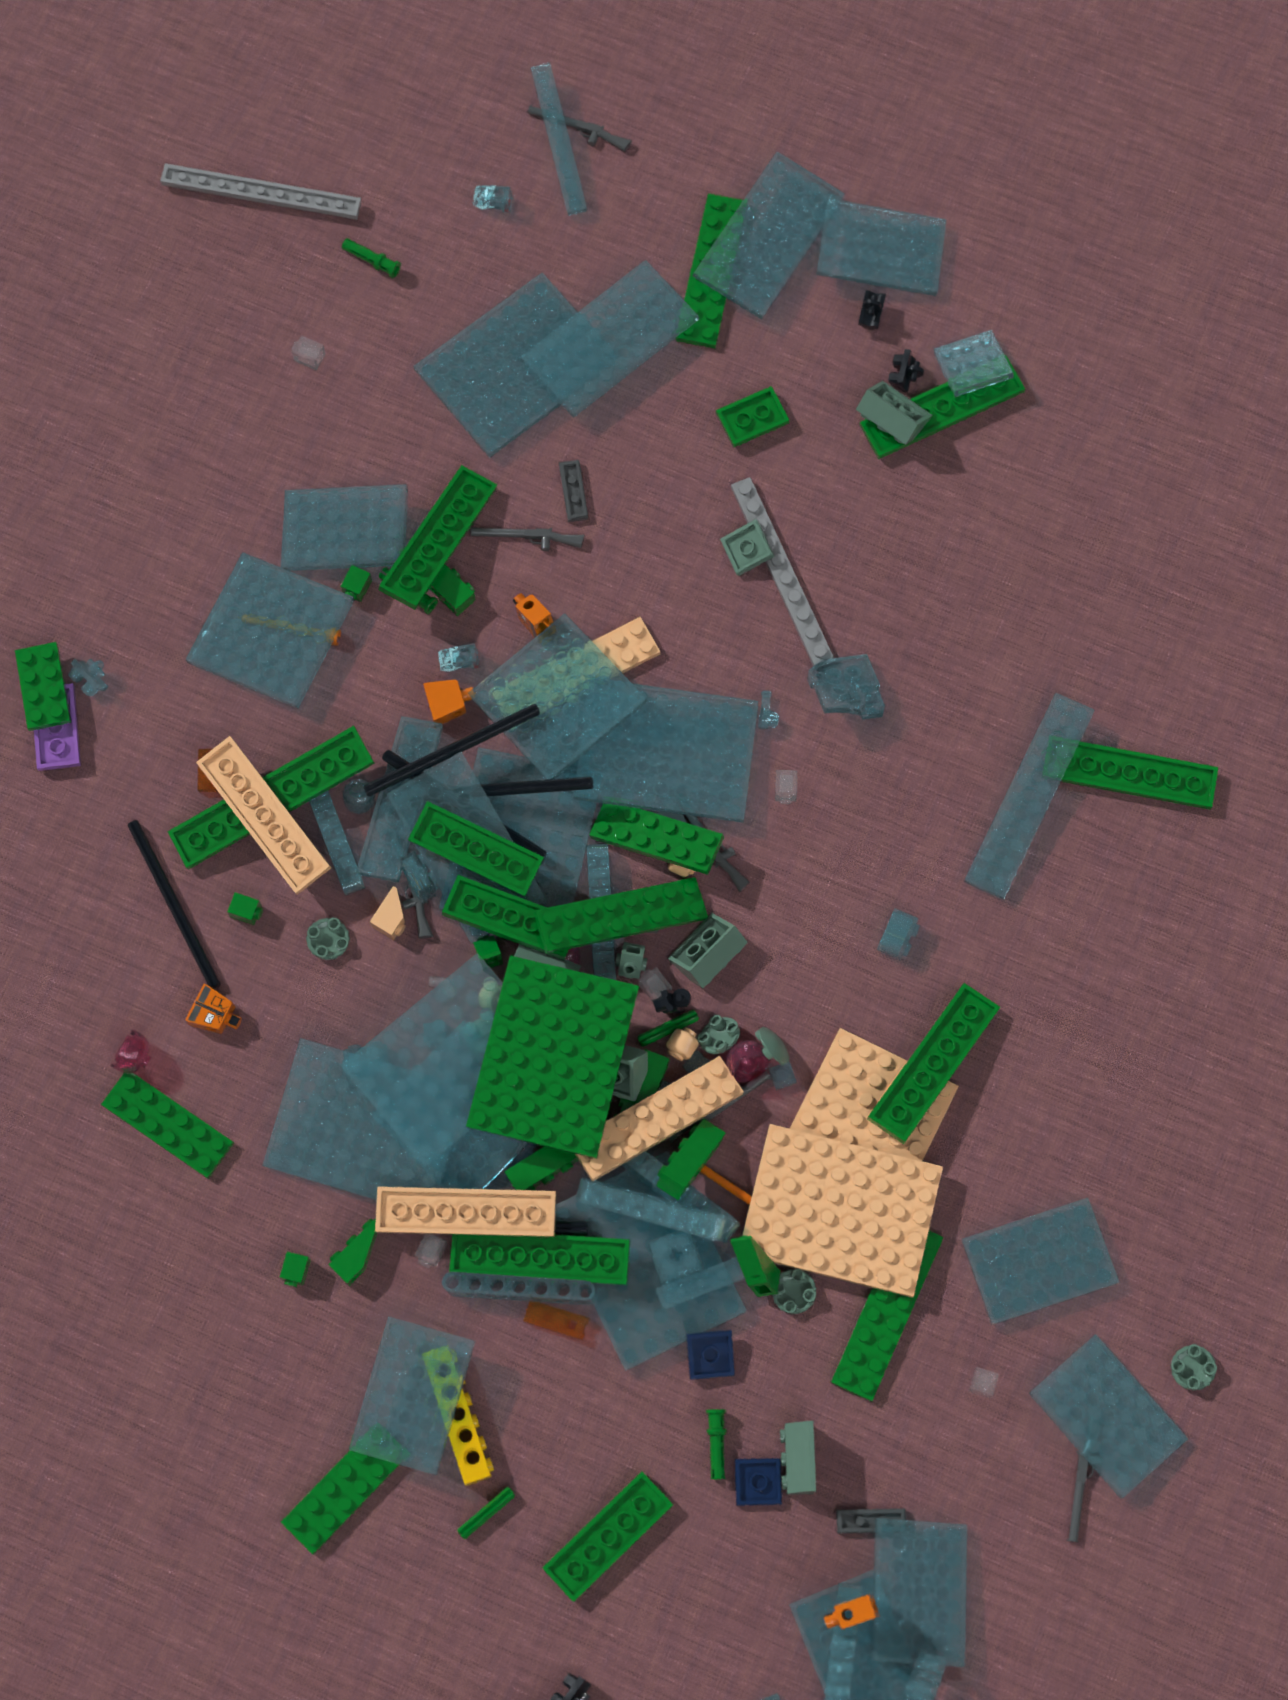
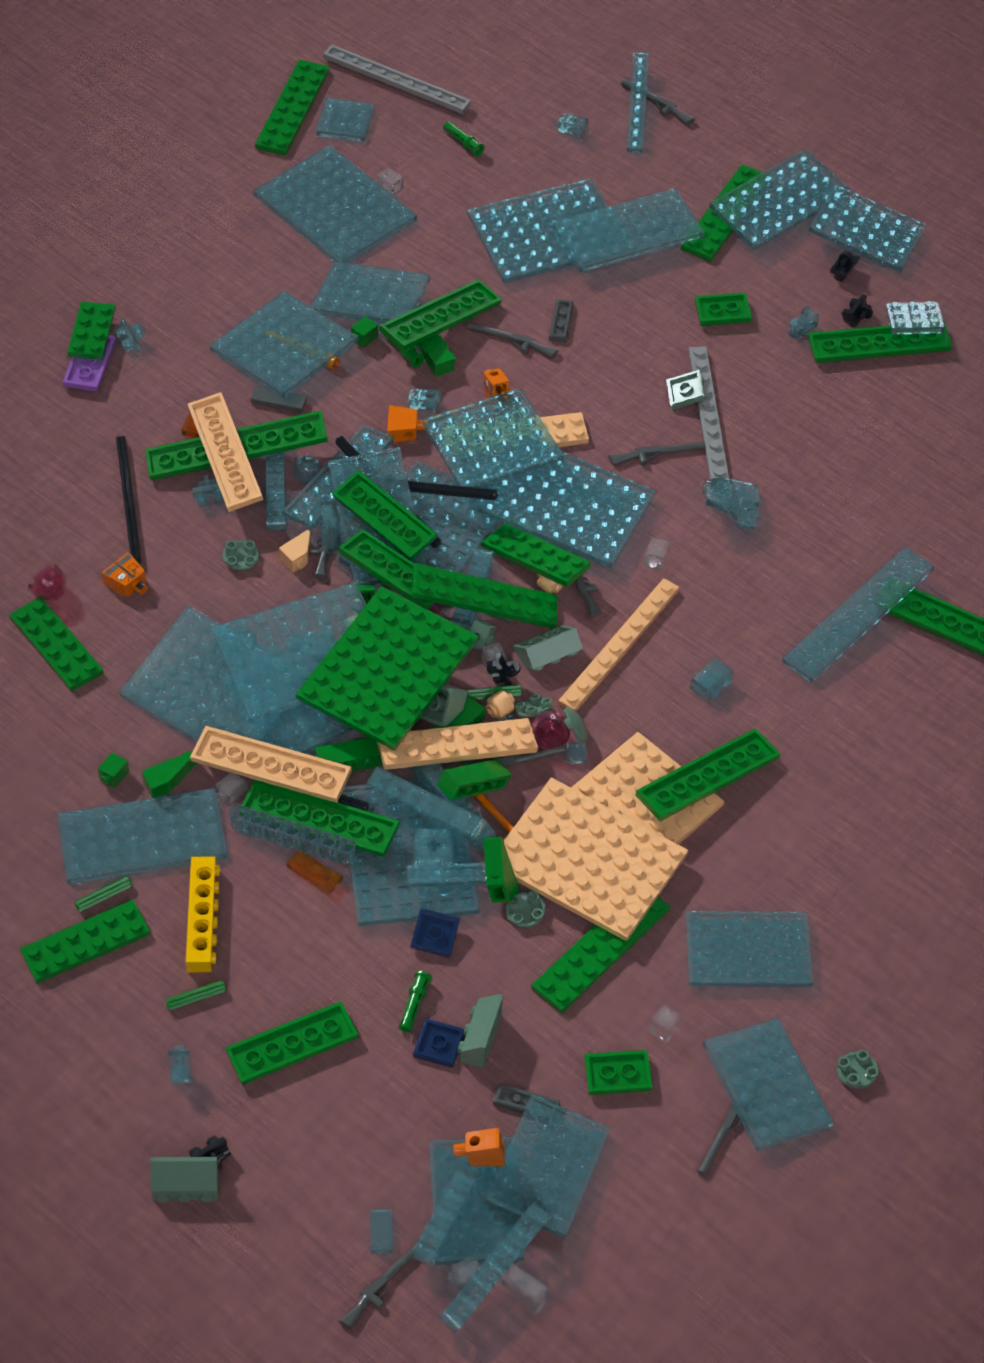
camera: 15 degrees right, 20 degrees down
(151, 272) = (292, 107): none -> green plate
(221, 271) = (345, 119): none -> clear light blue plate
(245, 909) = (182, 516): green brick -> none
(253, 872) = (206, 489): none -> clear light blue hips
(255, 405) = (335, 205): none -> clear light blue plate
(278, 711) = (267, 397): none -> dark grey tile
(338, 1342) = (140, 835): none -> clear light blue plate
(340, 1425) = (103, 893): none -> green axle
(412, 1395) = (169, 882): clear light blue plate -> none
(452, 749) = (405, 446): black axle -> none
(504, 1610) = (179, 1065): none -> clear light blue hips
(725, 649) = (645, 453): none -> dark grey piece
(767, 718) = (660, 505): clear light blue bar -> none
(783, 920) = (618, 645): none -> light nougat plate
(847, 413) = (804, 323): none -> clear light blue leg
(893, 412) = (836, 330): sand green slope -> none
(953, 1455) = (618, 1072): none -> green plate

